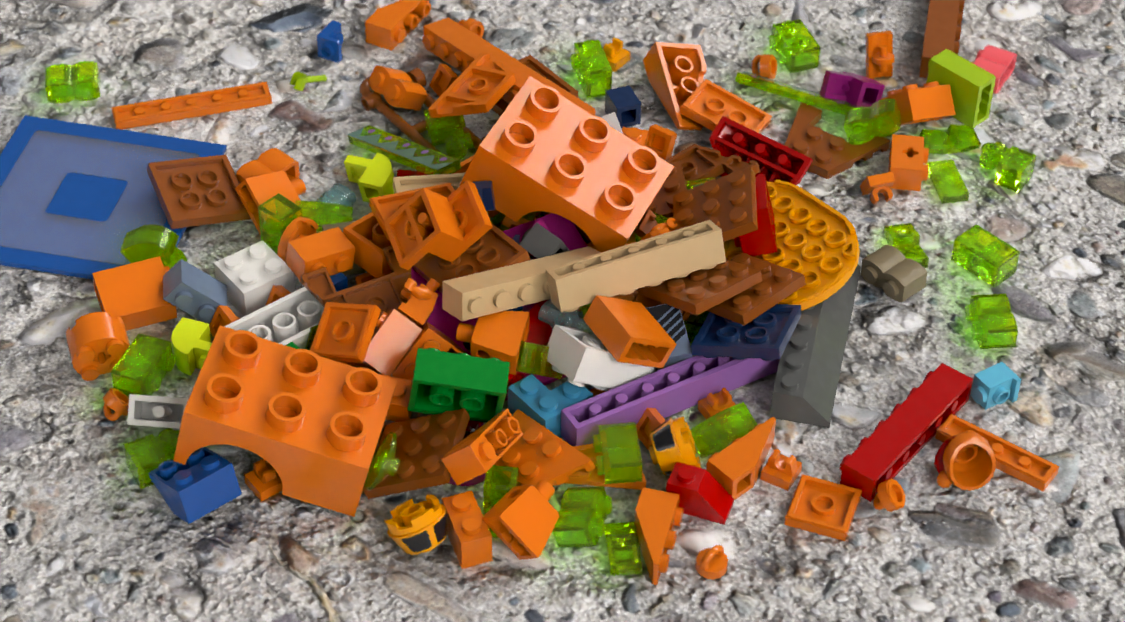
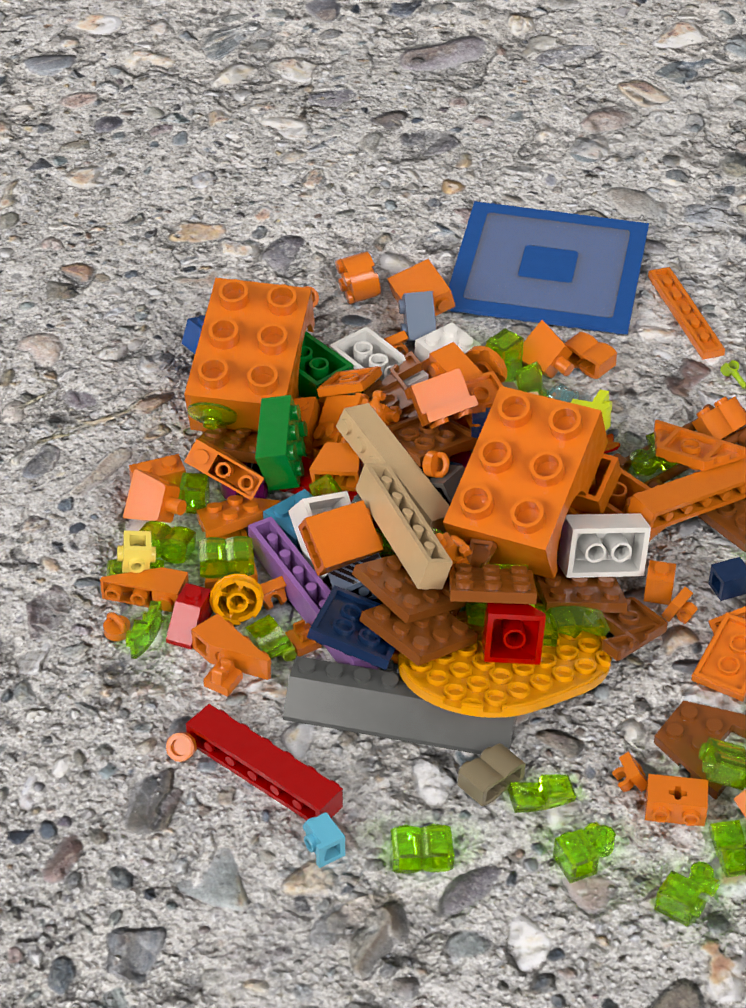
camera: 90 degrees right, 0 degrees up
(72, 82) = (695, 242): clear neon green brick -> none
(143, 366) = (340, 303): clear neon green brick -> none
(151, 242) = (470, 298): clear neon green brick -> none
(190, 344) = (375, 320): neon yellow brick -> none
(197, 191) = (557, 305): dark orange plate -> none
(404, 151) = (634, 416): clear neon green tile -> none
(418, 525) = (157, 444): light orange cone -> none
(533, 244) = (435, 464): none -> orange tile
(624, 523) = (136, 557): none -> light yellow brick
(713, 526) = (145, 630): none -> clear neon green slope
(773, 158) = (658, 671): red wedge -> none
(823, 507) = (175, 703): orange tile -> none
(947, 181) = (659, 841): clear neon green tile -> none
(965, 462) = (217, 800): orange piece -> none
(966, 217) = (579, 850): none -> clear neon green brick
(985, 255) = (518, 848): clear neon green brick -> none
(1008, 456) = (241, 839): orange tile -> none

